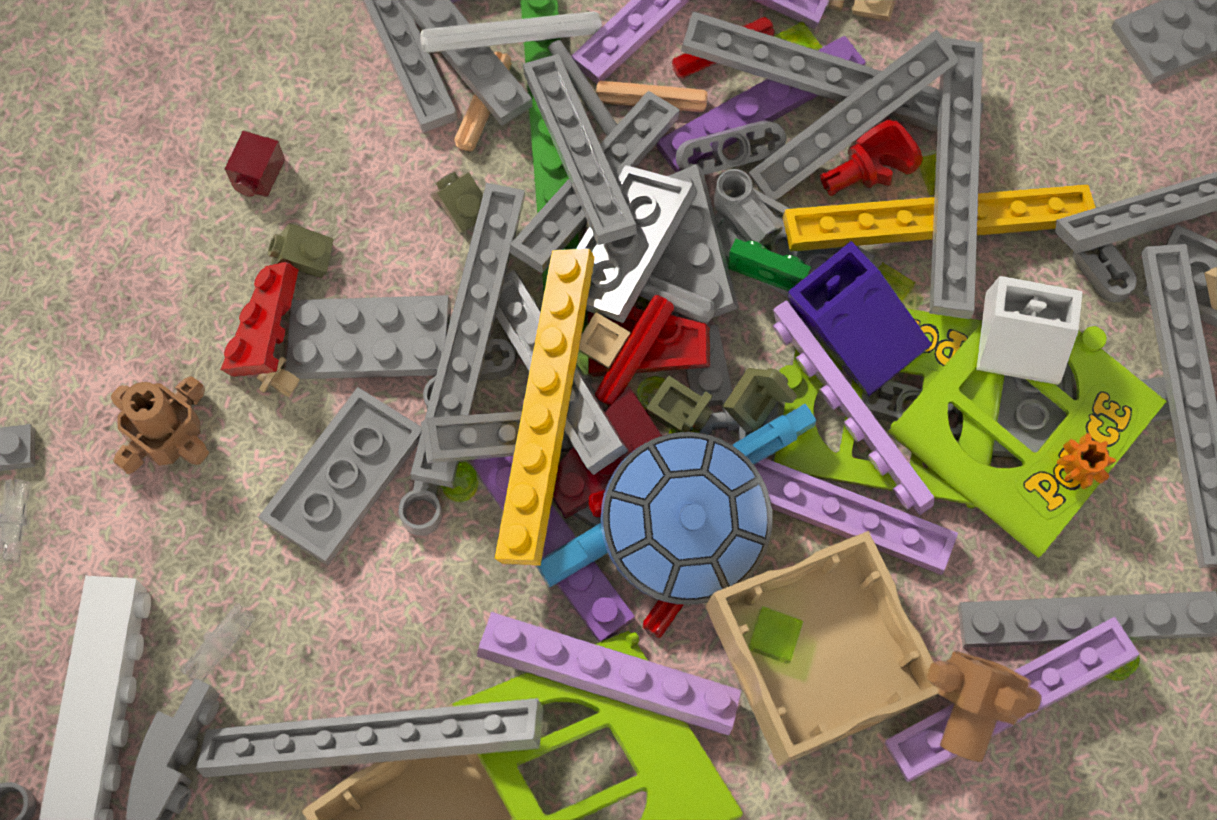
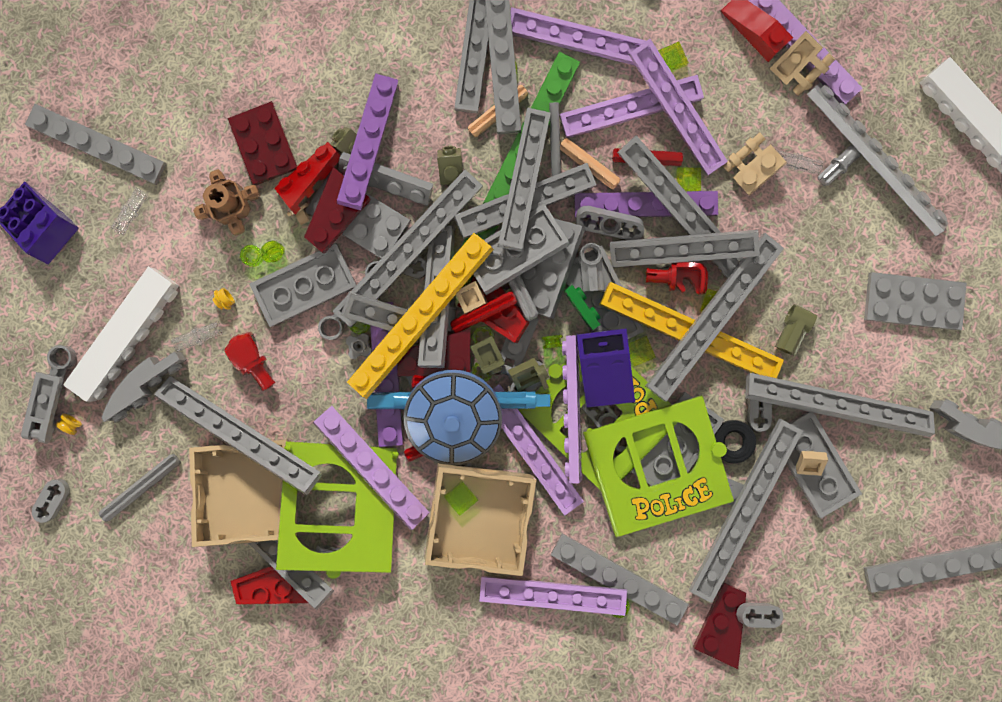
camera: 30 degrees right, 20 degrees up
(169, 320) = (263, 143): none -> dark red plate
(226, 477) = (248, 249): none -> clear neon green bush
(229, 565) = (223, 299): none -> yellow plate
(254, 164) = (353, 78): dark red brick -> none
(267, 454) = (272, 251): none -> clear neon green plate
(317, 627) = (245, 358): none -> red piece
(326, 228) = (367, 142): none -> medium lavender plate
(332, 341) = (329, 217): none -> dark red wing
(378, 265) = (395, 182): none -> light grey plate
(478, 525) = (363, 341): none -> light grey plate
(509, 31) = (532, 82): white axle -> none
(758, 343) = (552, 341): none -> clear neon green bush
(980, 696) = (533, 592): medium nougat piece -> none
(1028, 329) = (684, 430): white slope -> none
(1072, 133) = (797, 325): none -> olive piece
(1093, 453) = (667, 516): orange gear -> none
(1122, 315) = (748, 436): none -> black tyre

